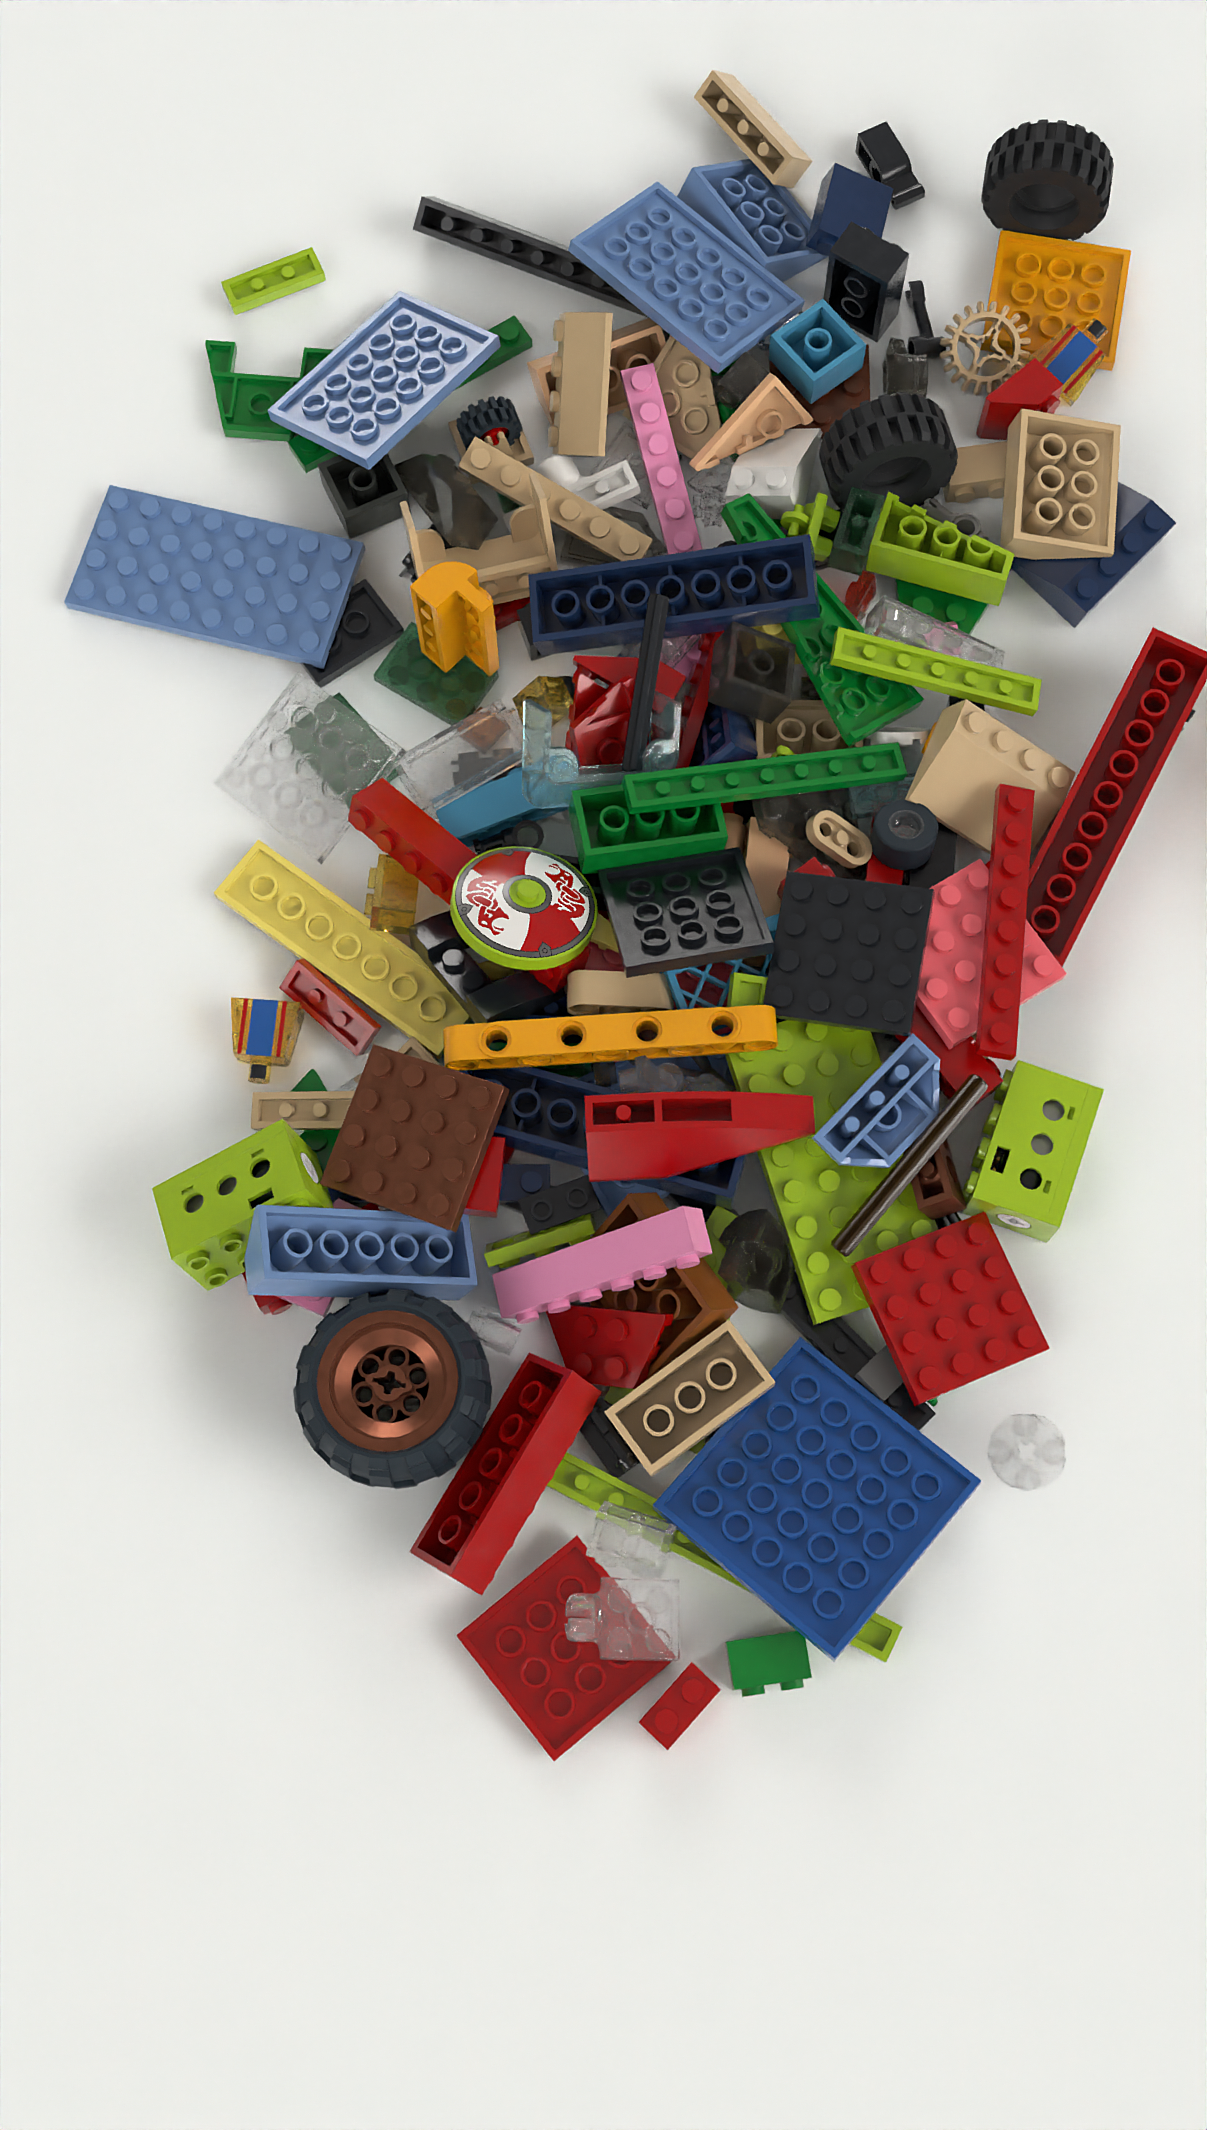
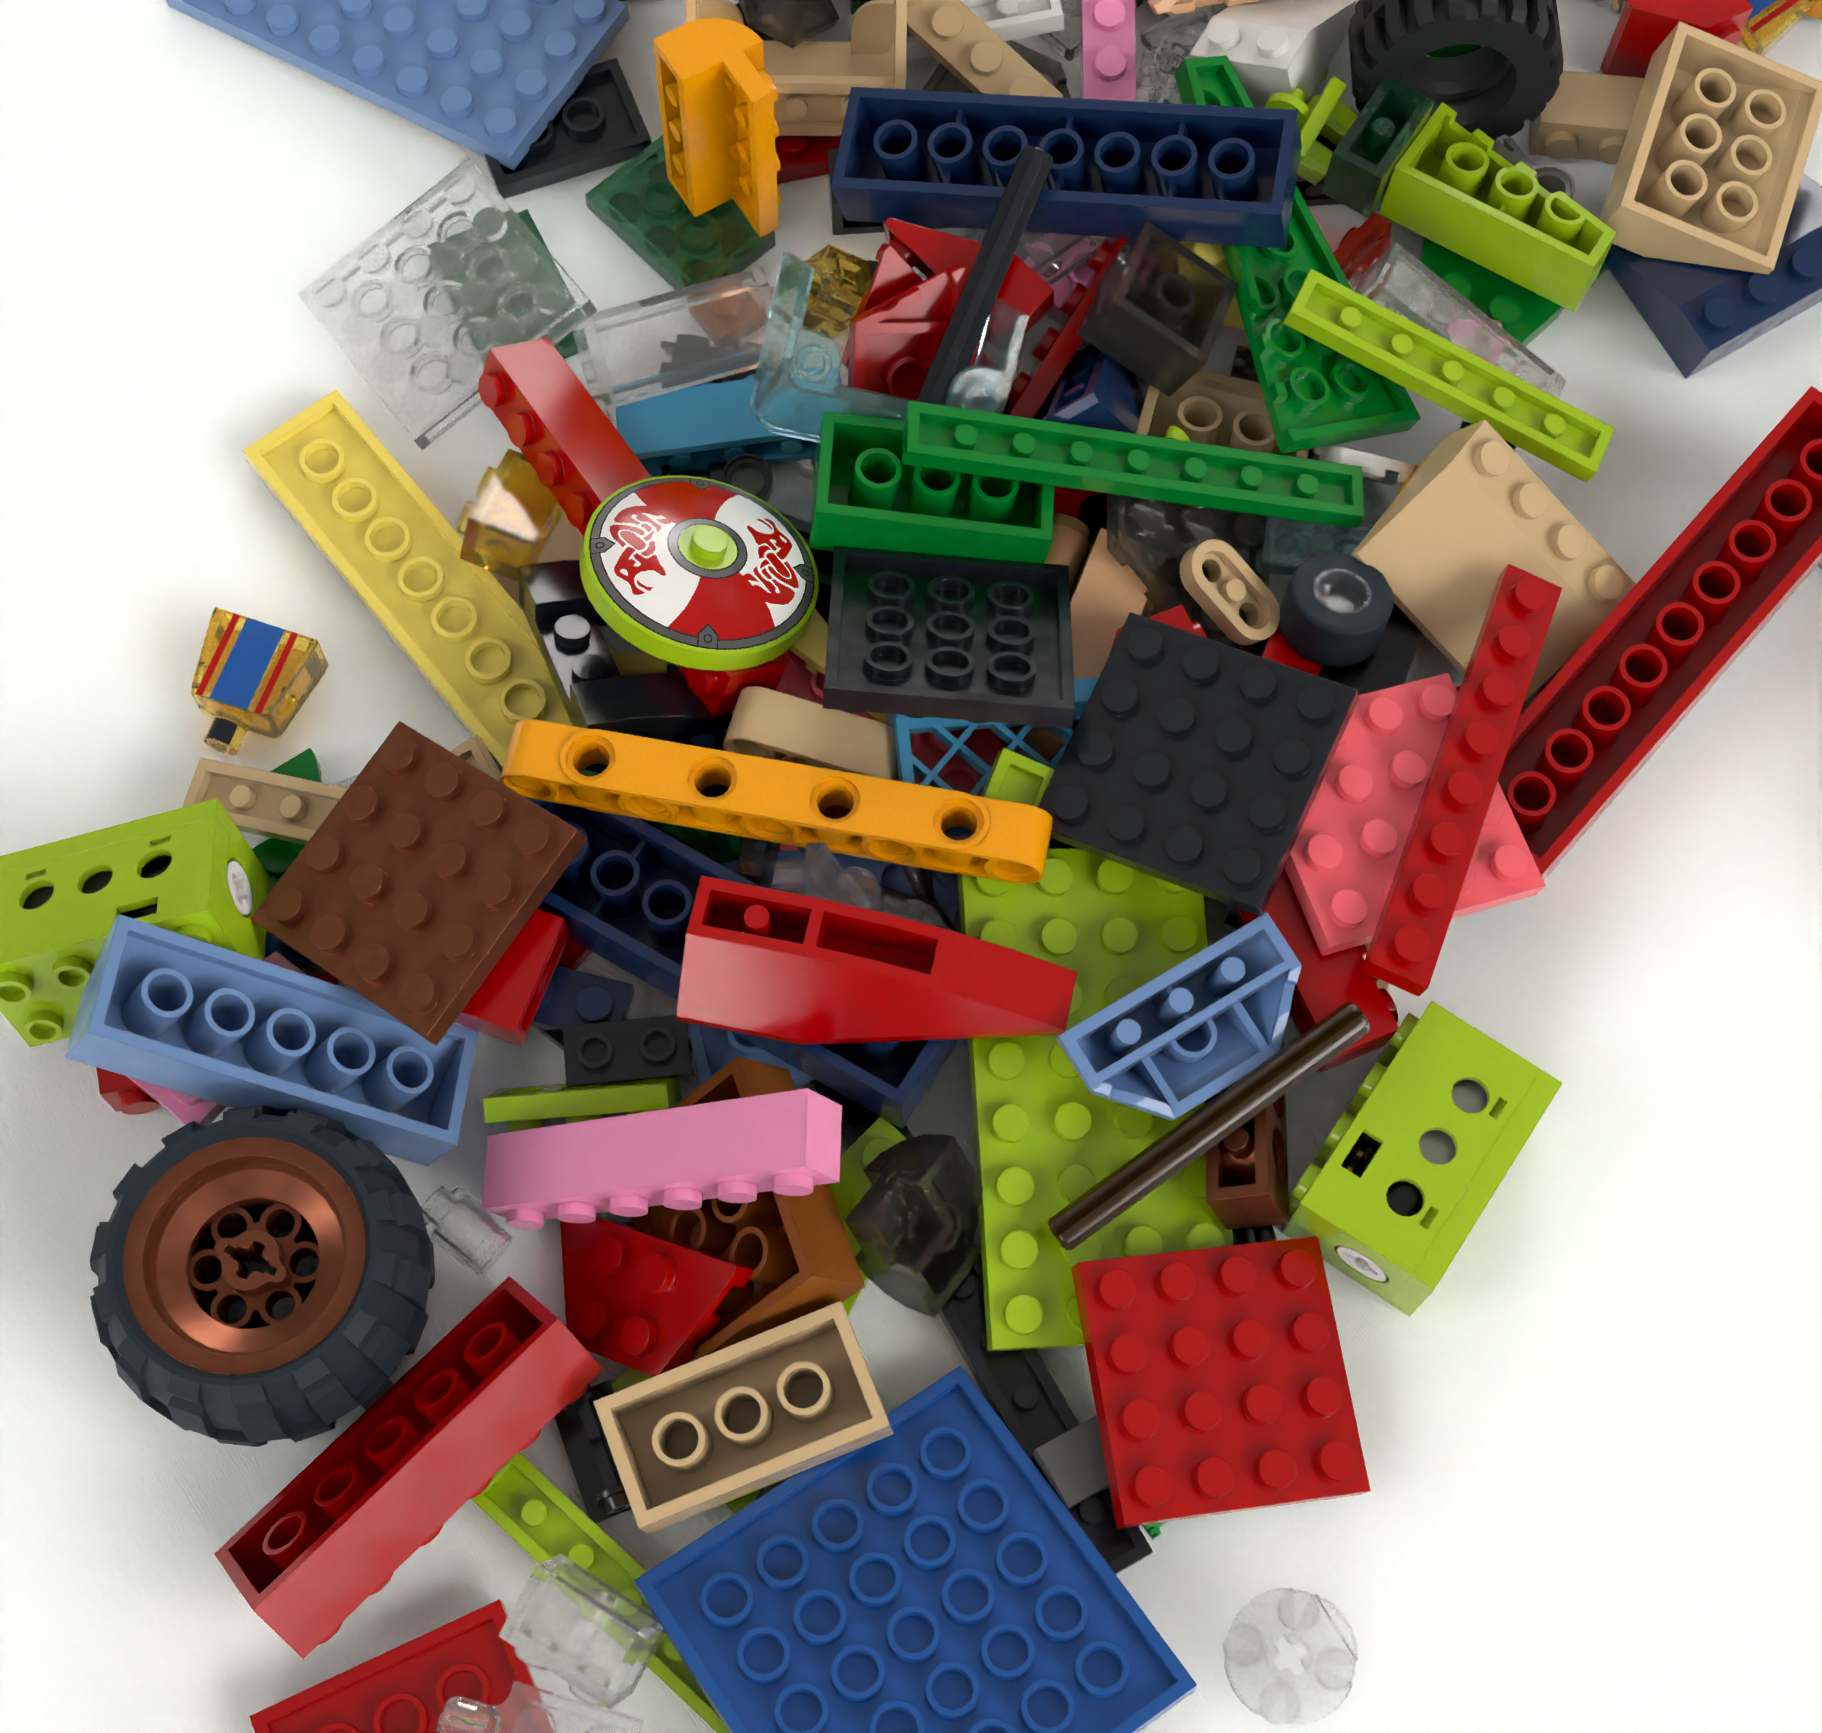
camera: 10 degrees right, 5 degrees down
(330, 1007) = (365, 659): red plate -> none

